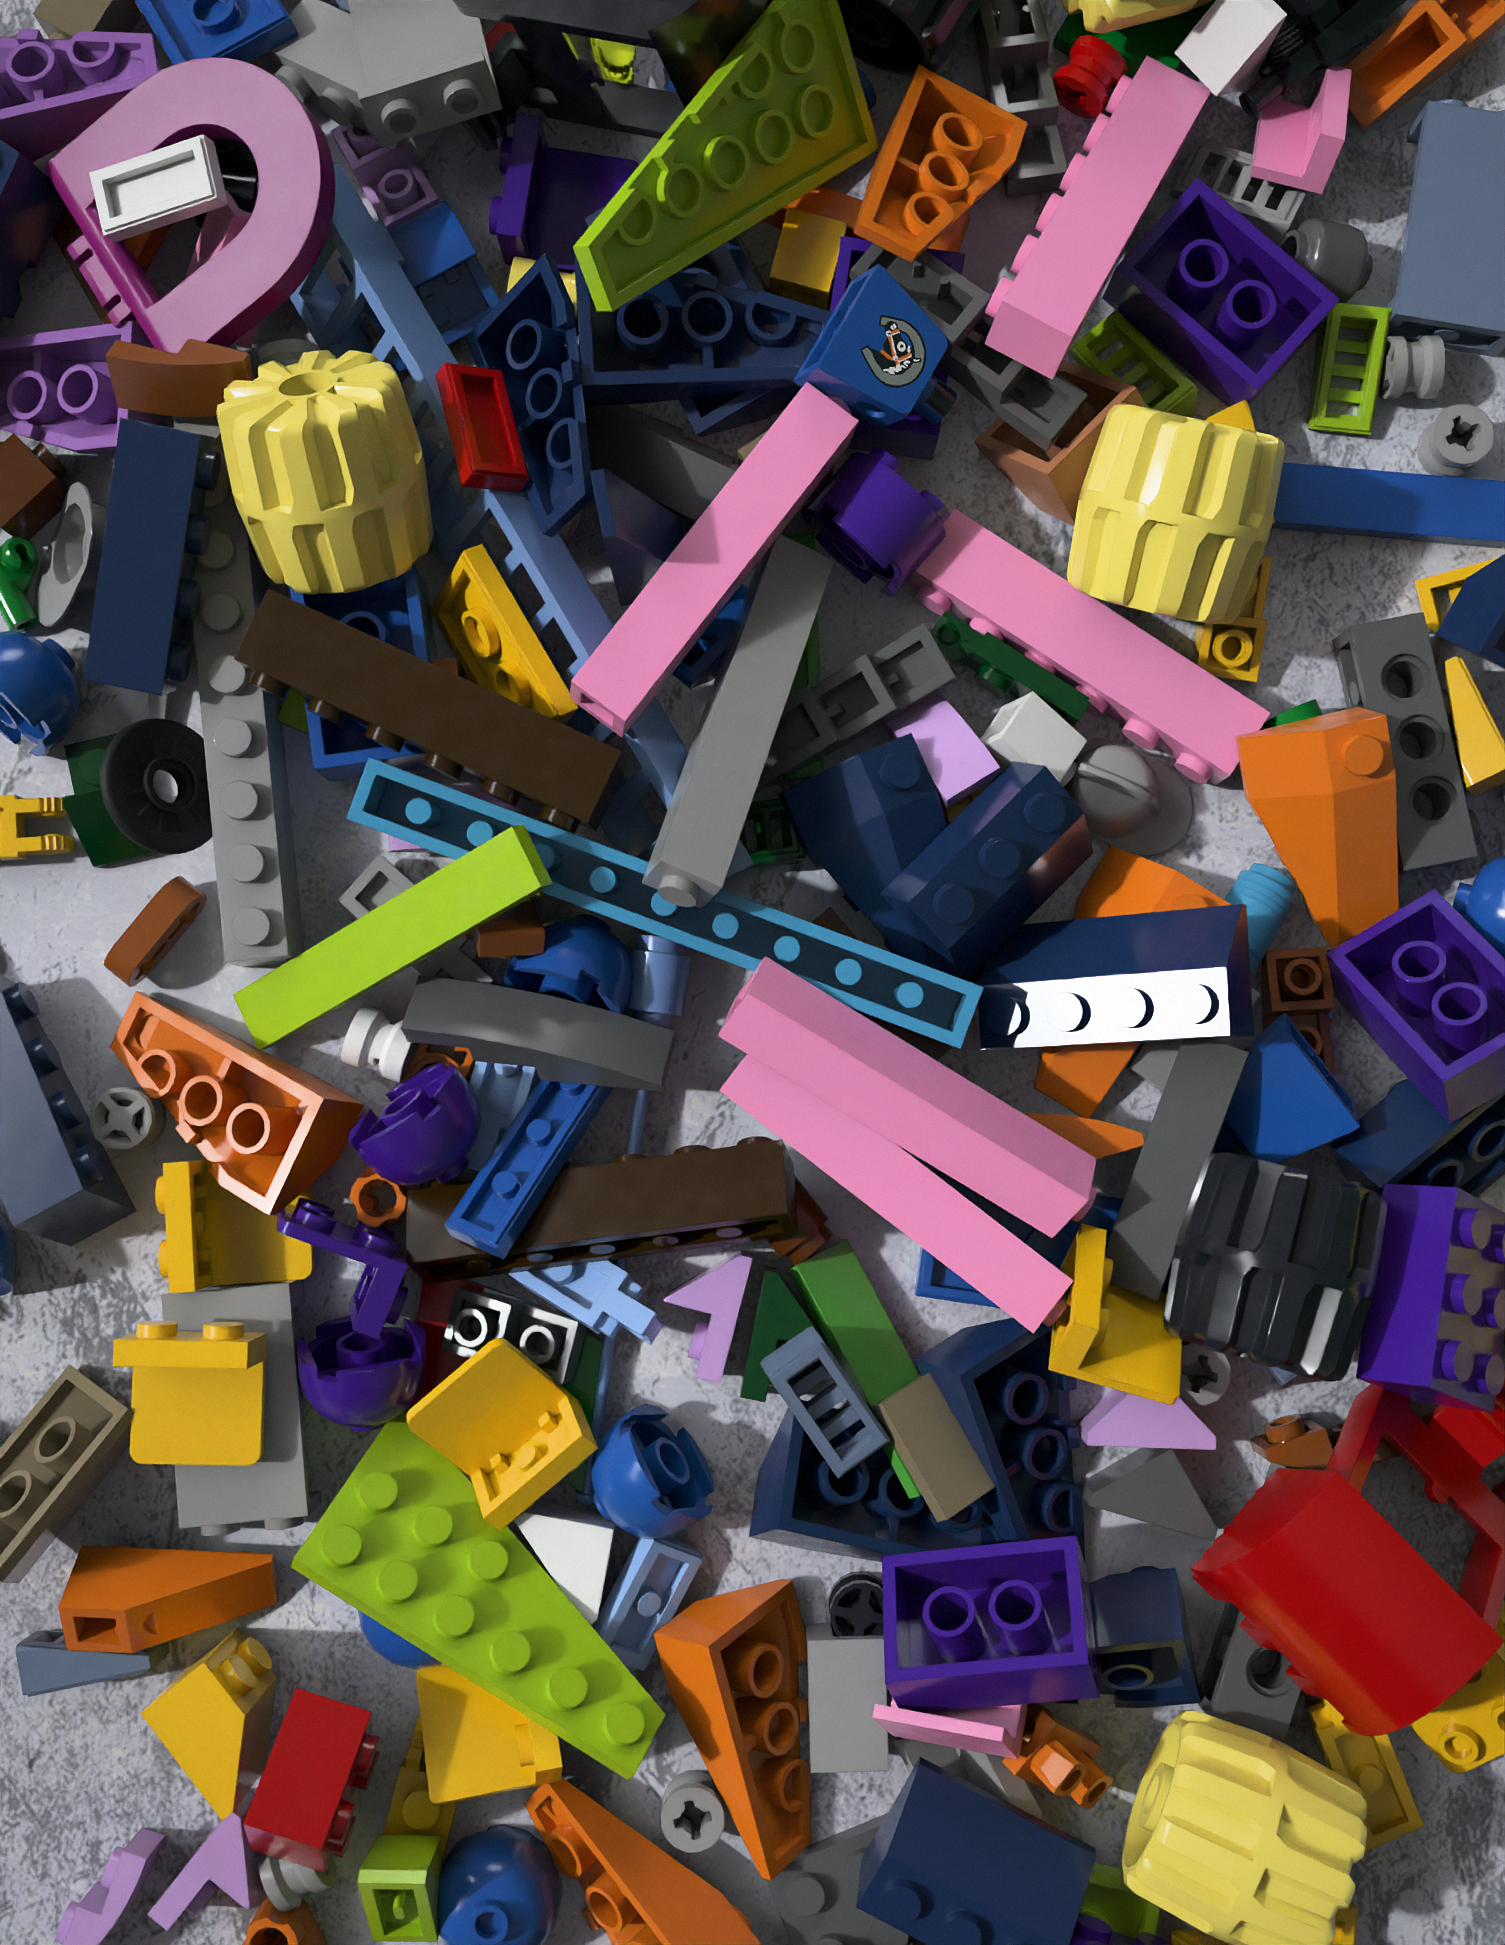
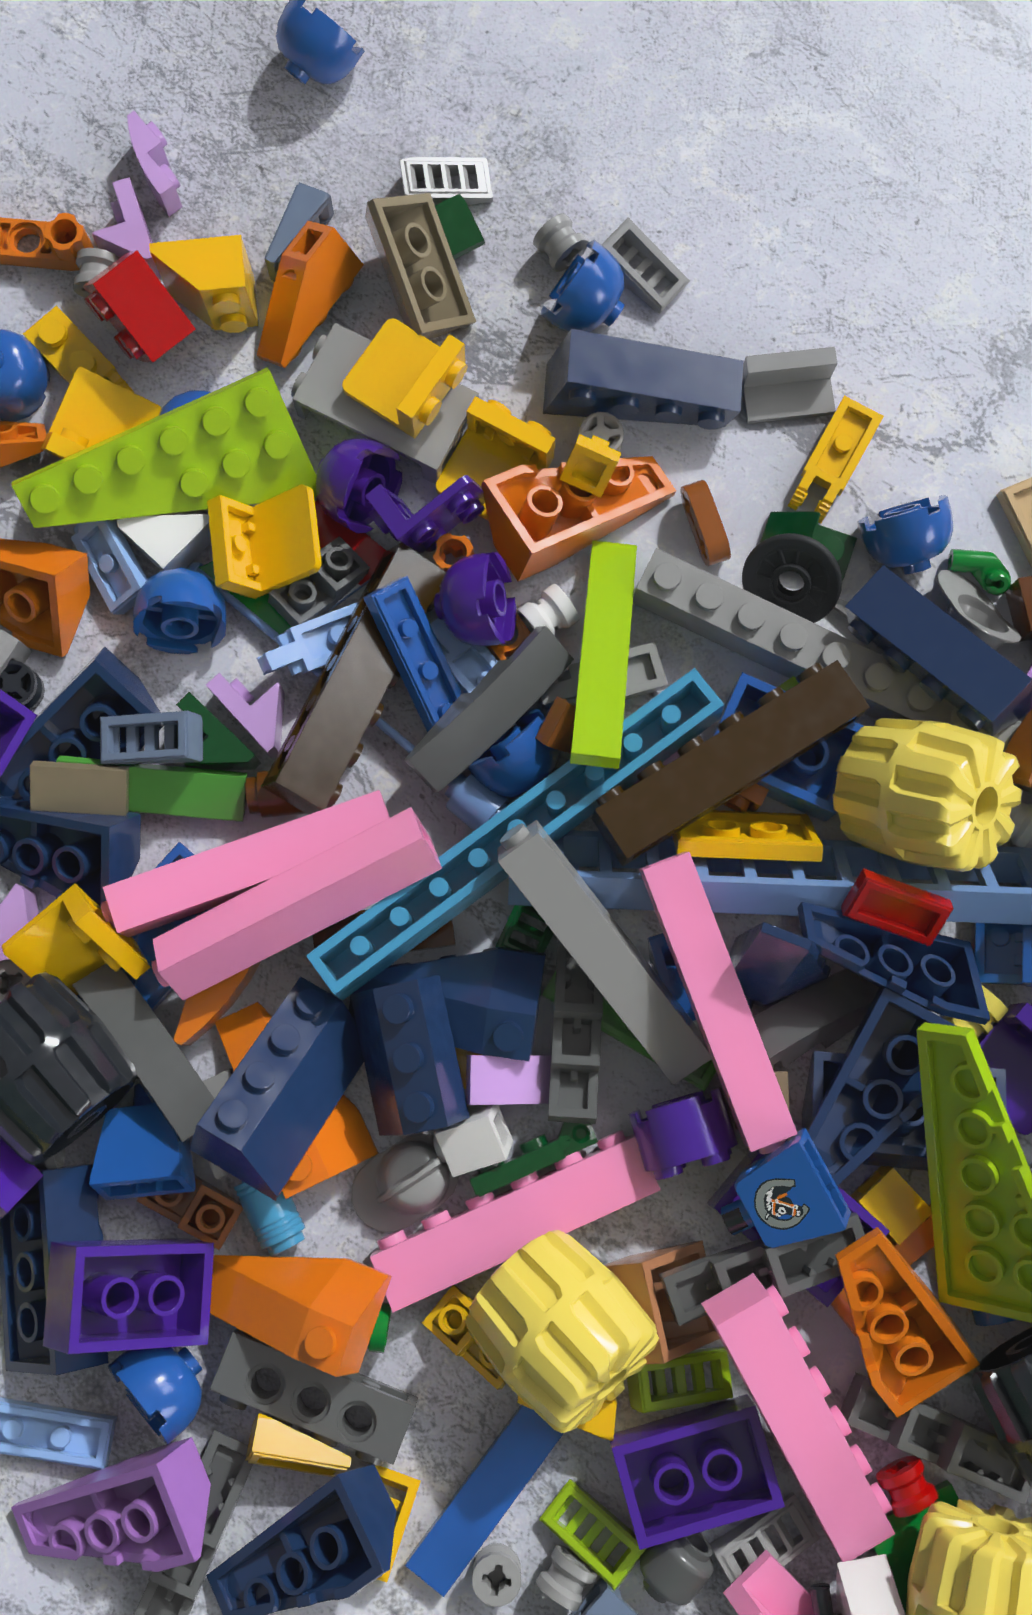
camera: 120 degrees right, 5 degrees down
(169, 1101) = (590, 465): none -> yellow tile
(402, 1887) = (45, 323): lime slope -> none

